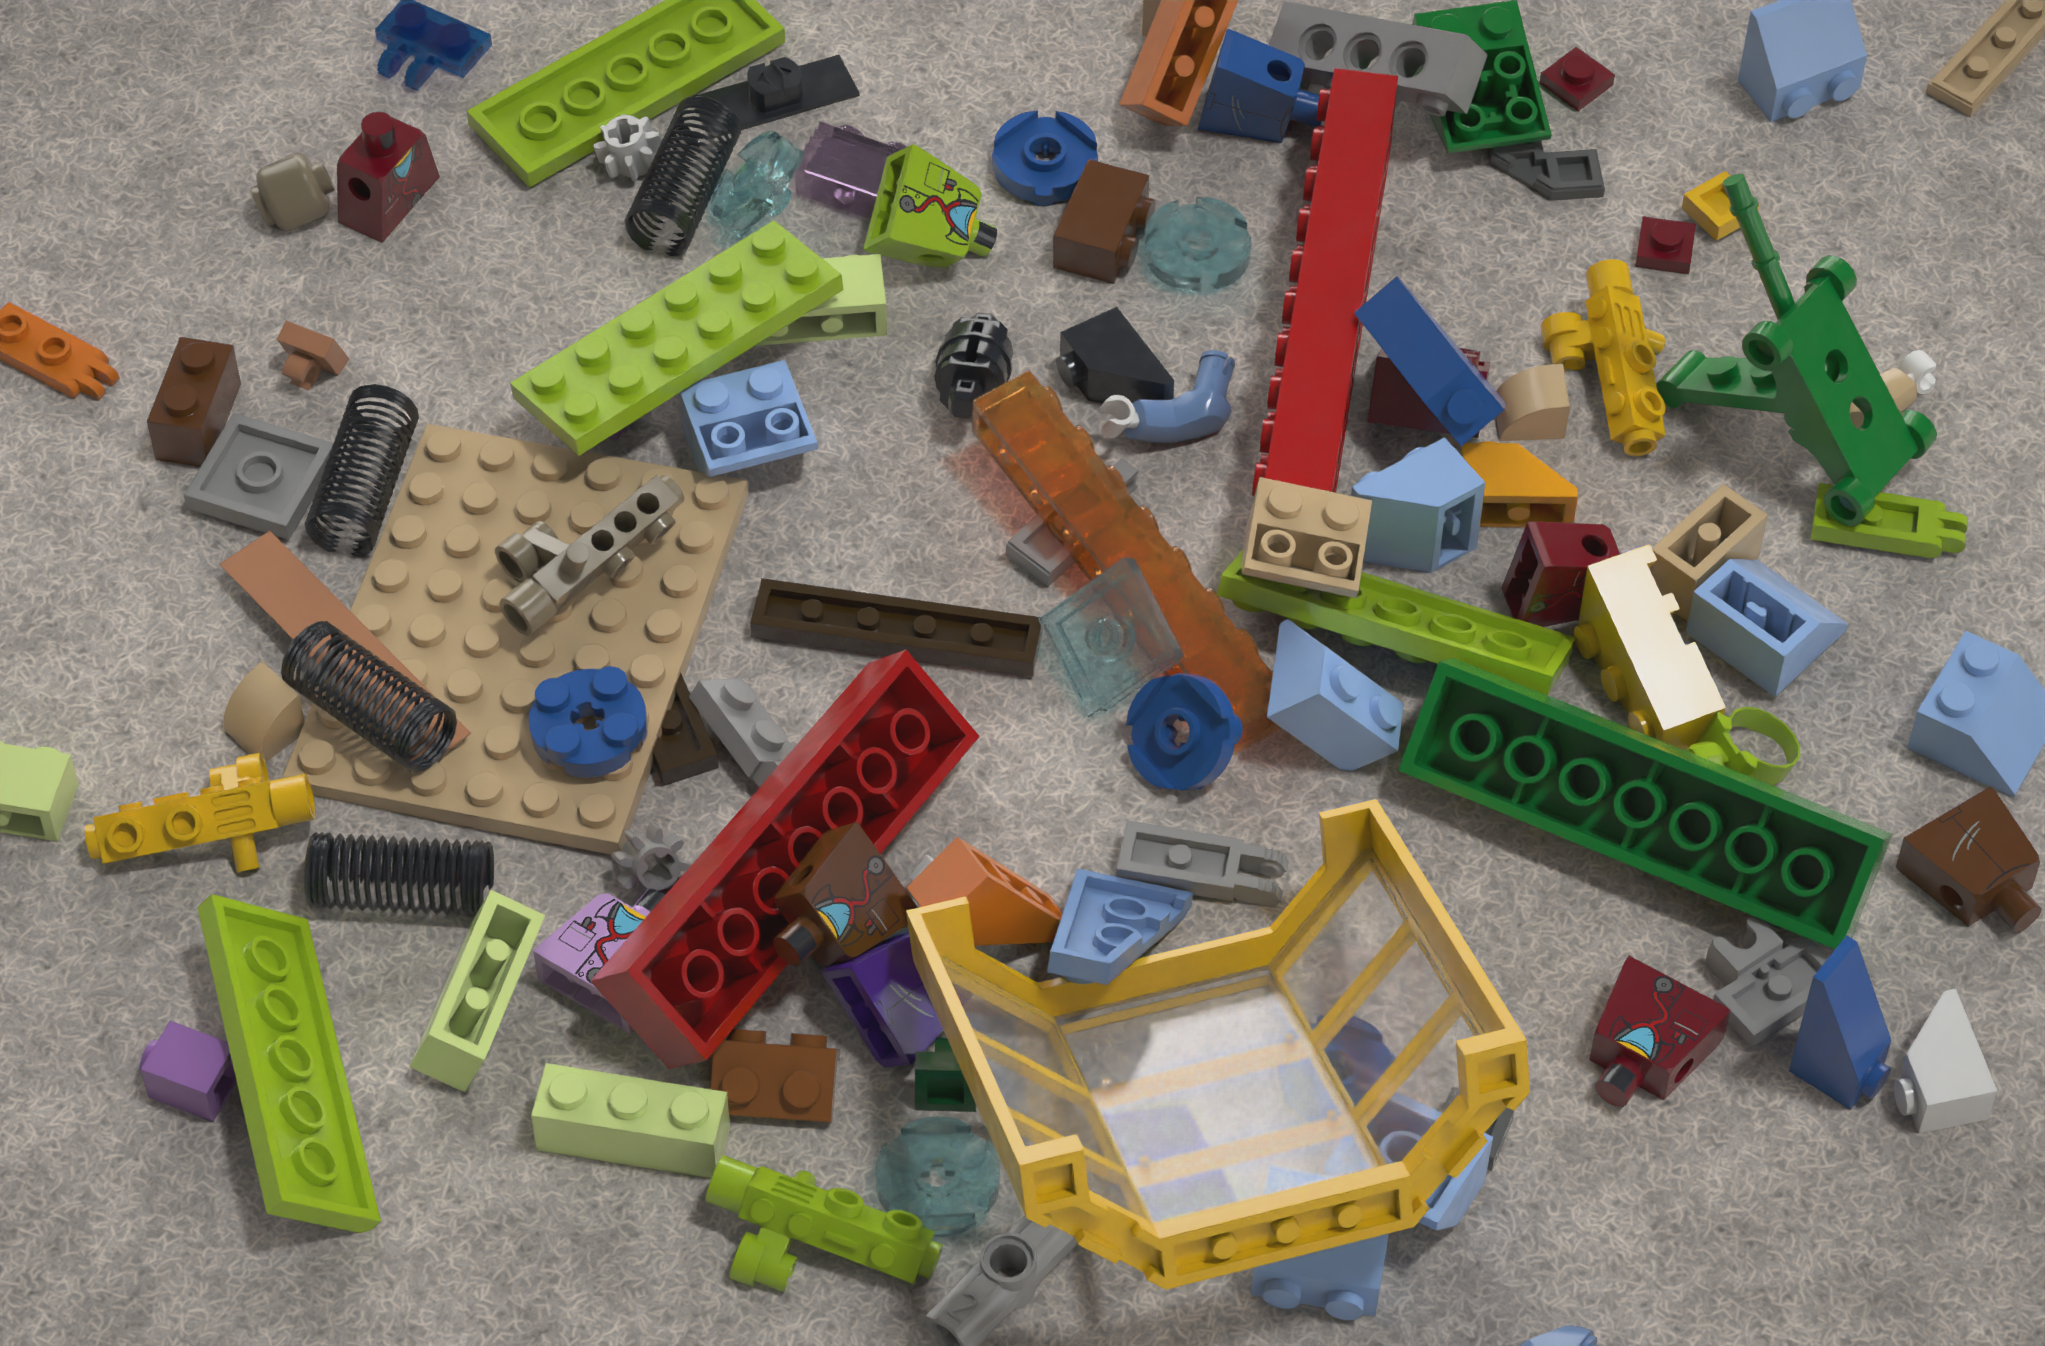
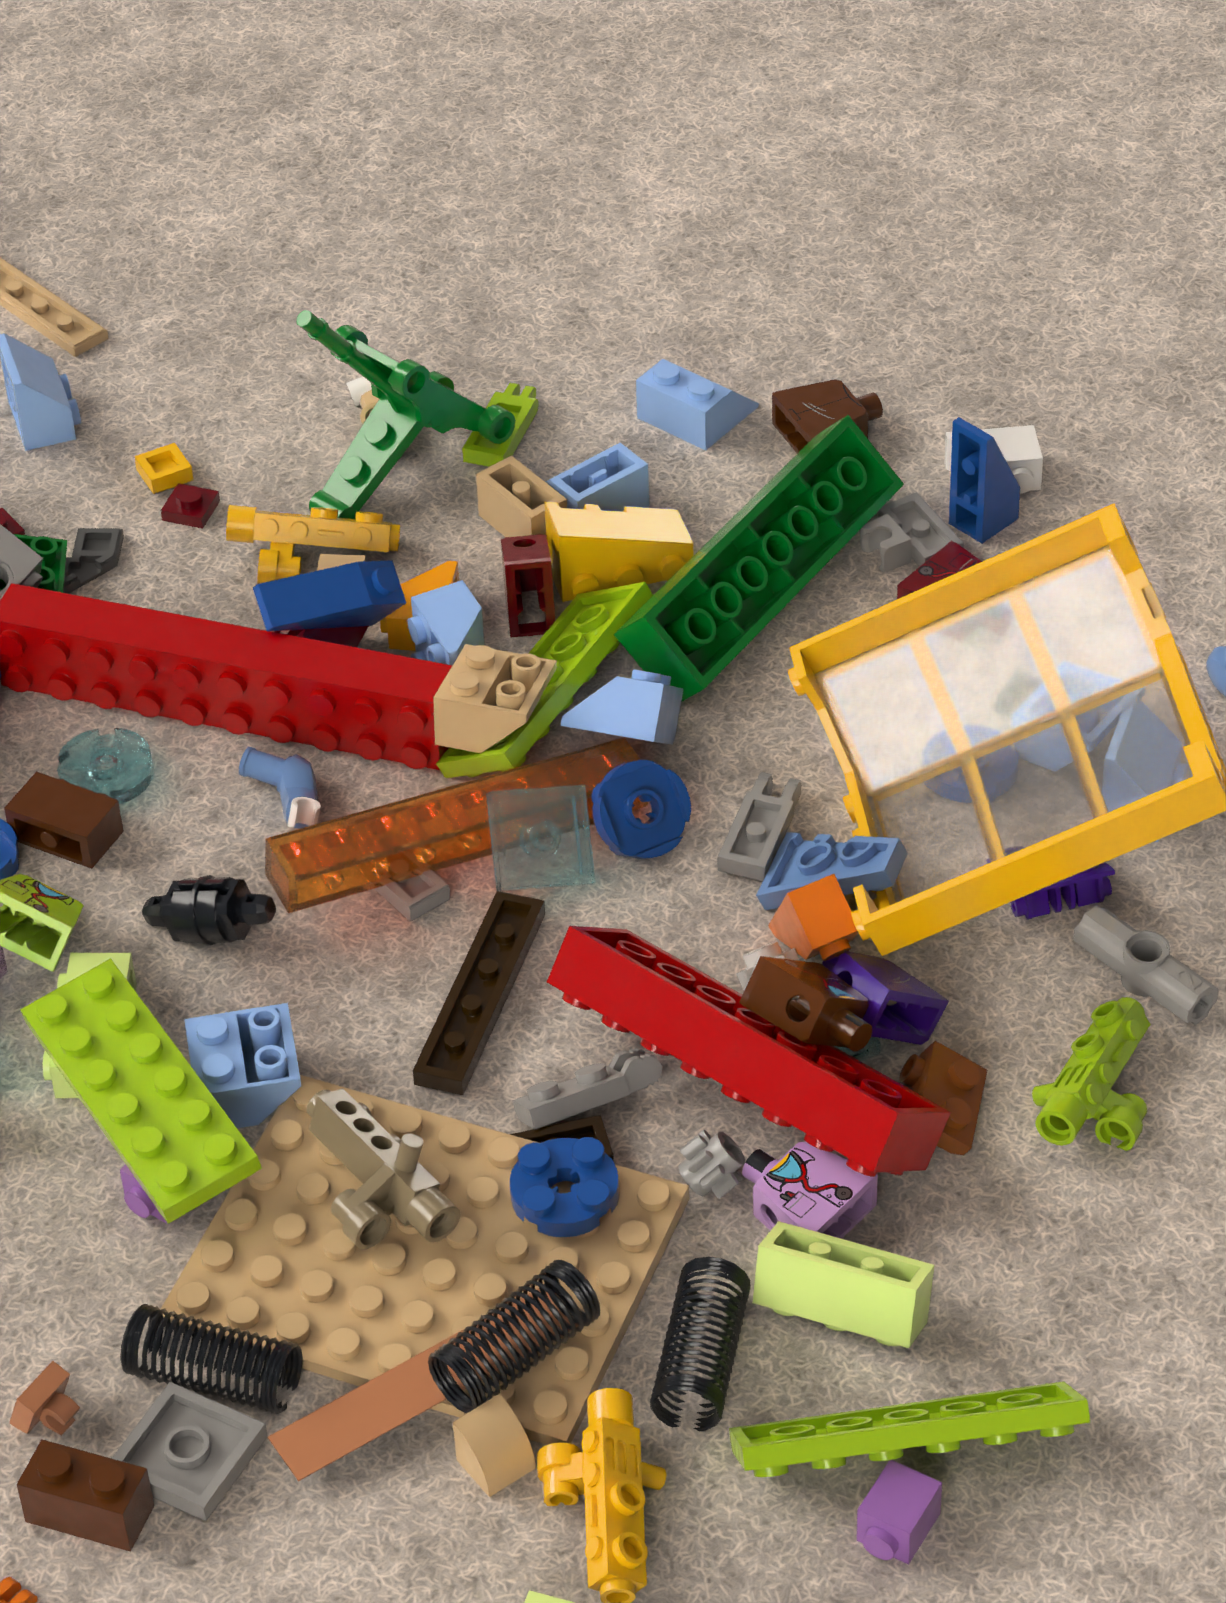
camera: 80 degrees left, 10 degrees down
(630, 1120) = (985, 1189): yellowish green brick -> none
(940, 1081) = (956, 985): dark green tile -> none
(961, 1153) = (1045, 1029): clear light blue plate -> none
(1111, 359) = (231, 823): black slope -> none
(1717, 745) = (704, 526): lime piece -> none

